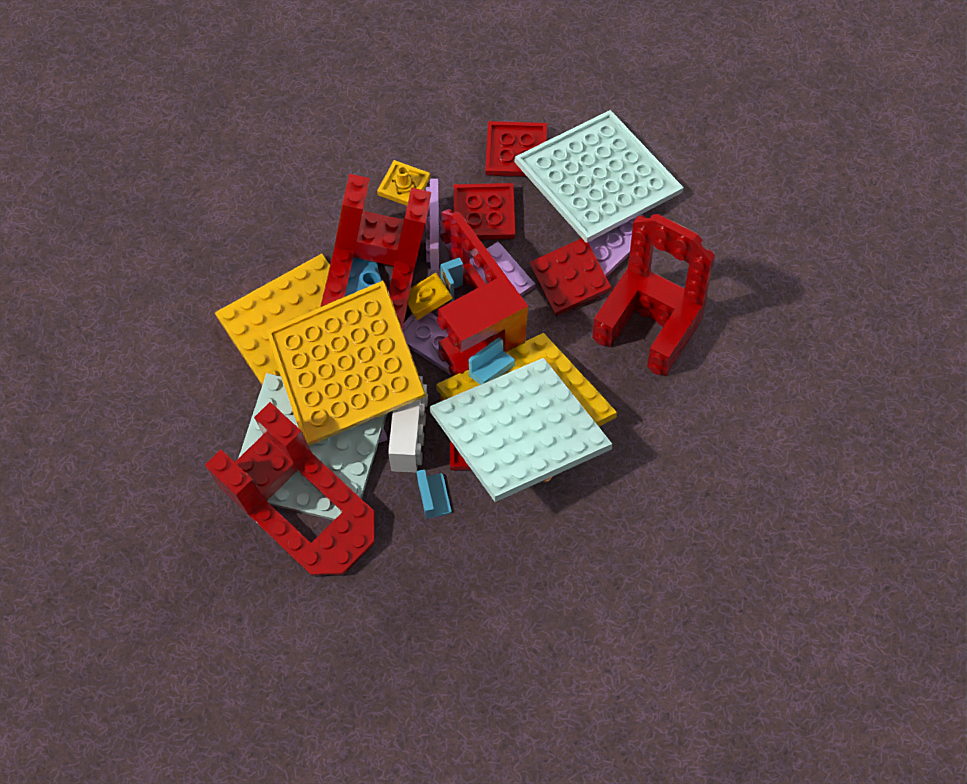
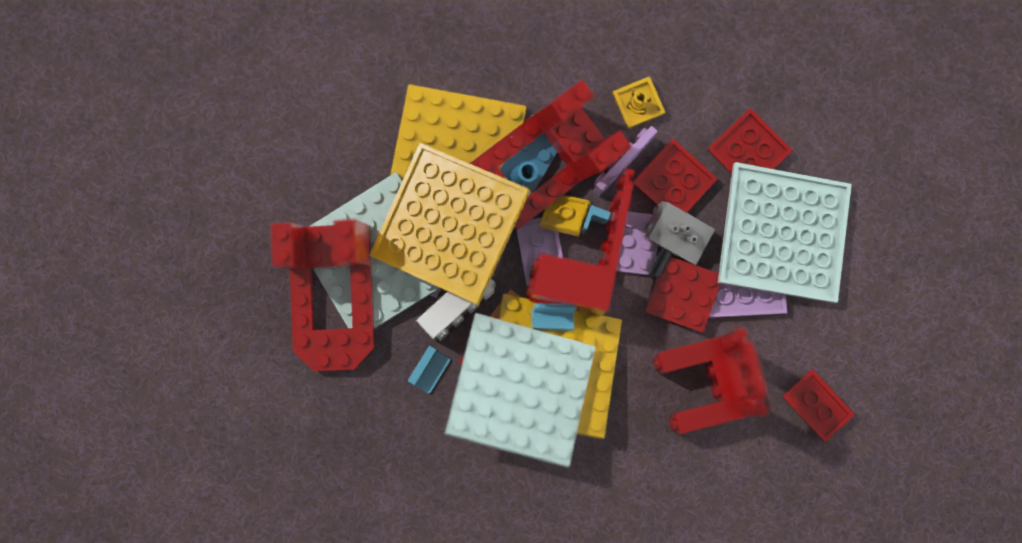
camera: 40 degrees right, 20 degrees up
(523, 239) = (677, 235): none -> light grey piece
(744, 266) = (818, 405): none -> red plate

